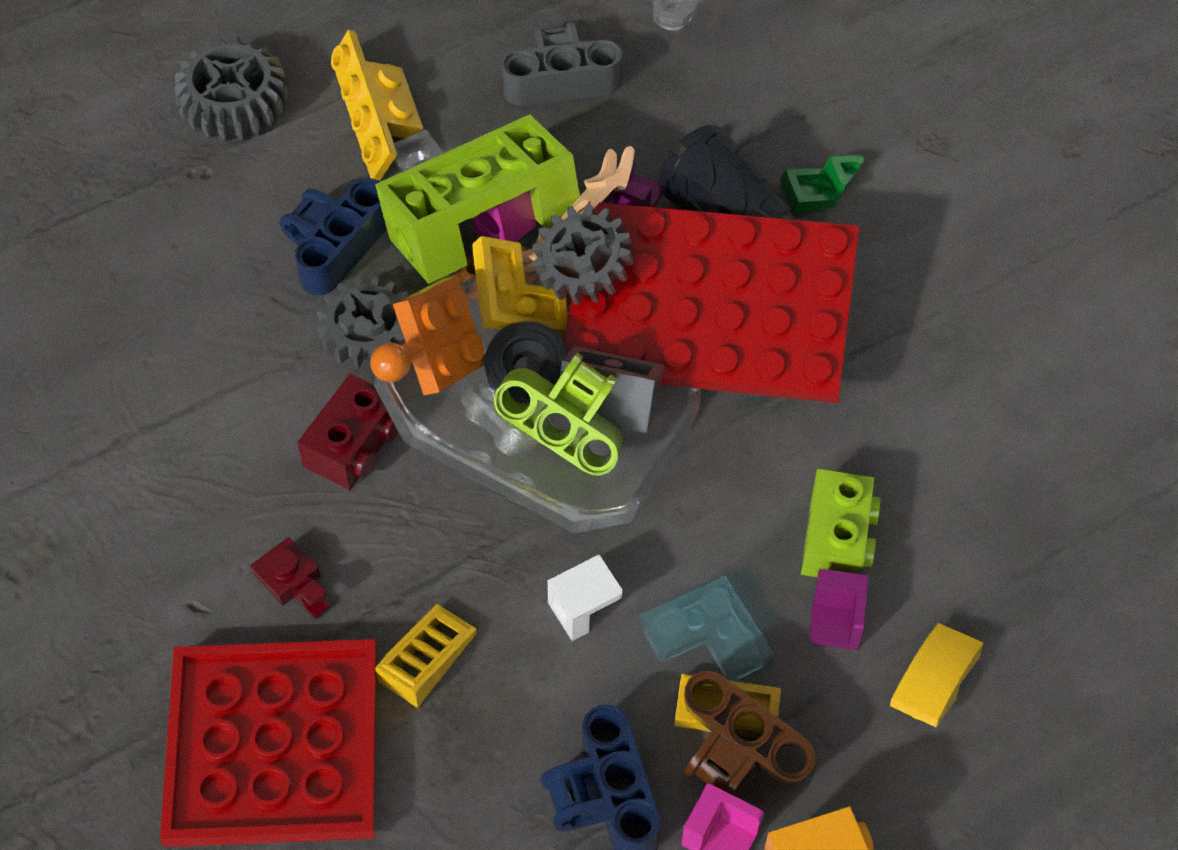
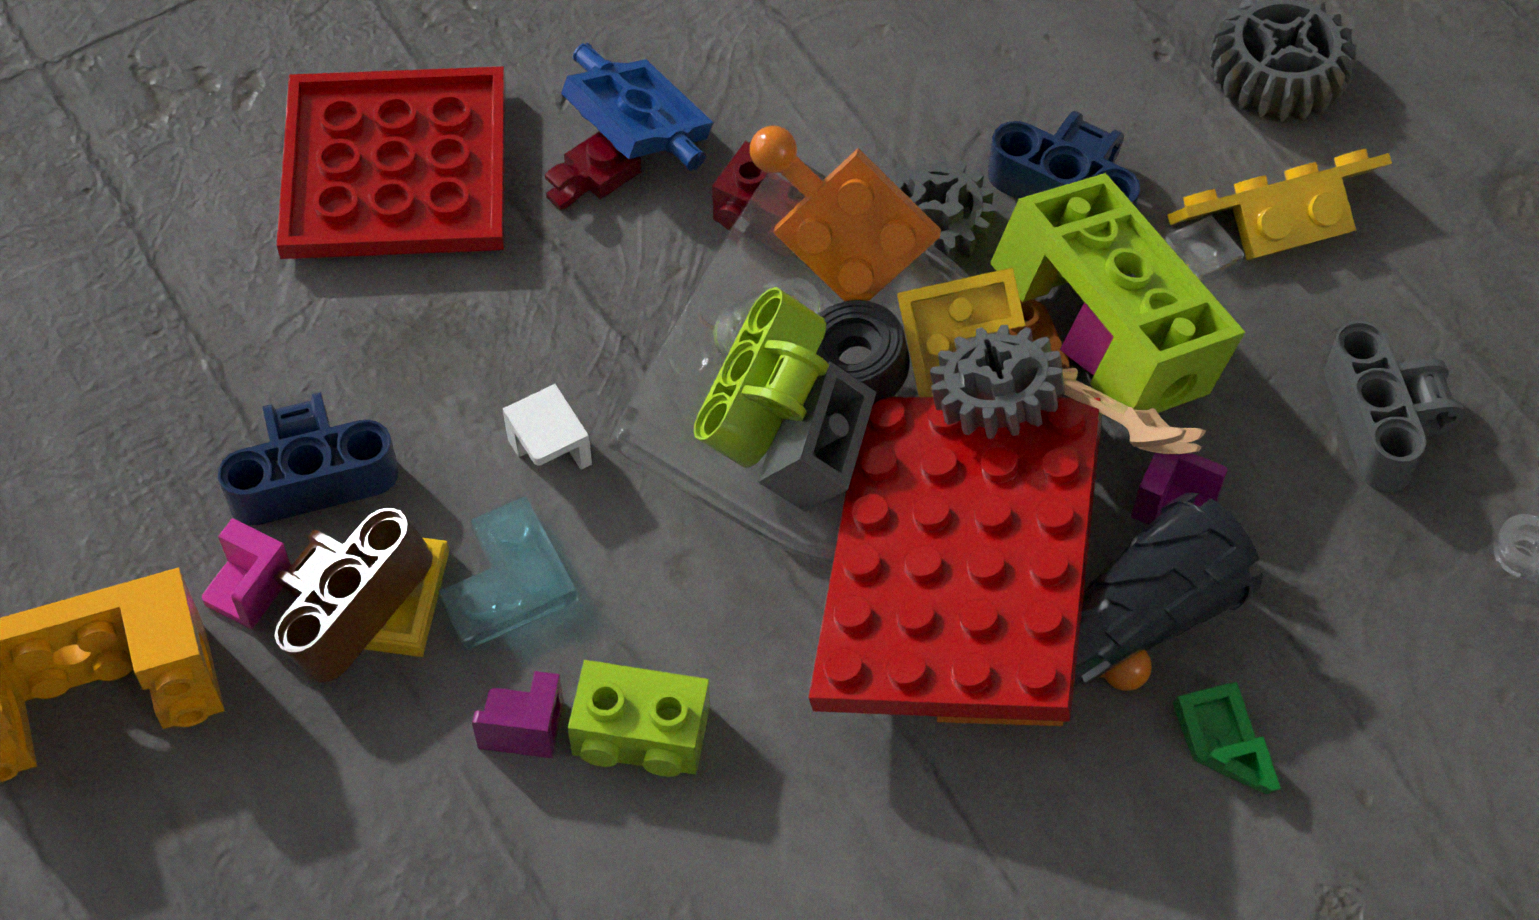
camera: 90 degrees right, 0 degrees up
(240, 532) = (636, 108): none -> blue plate
(416, 689) = (464, 265): yellow slope -> none
(936, 674) = (421, 820): yellow slope -> none

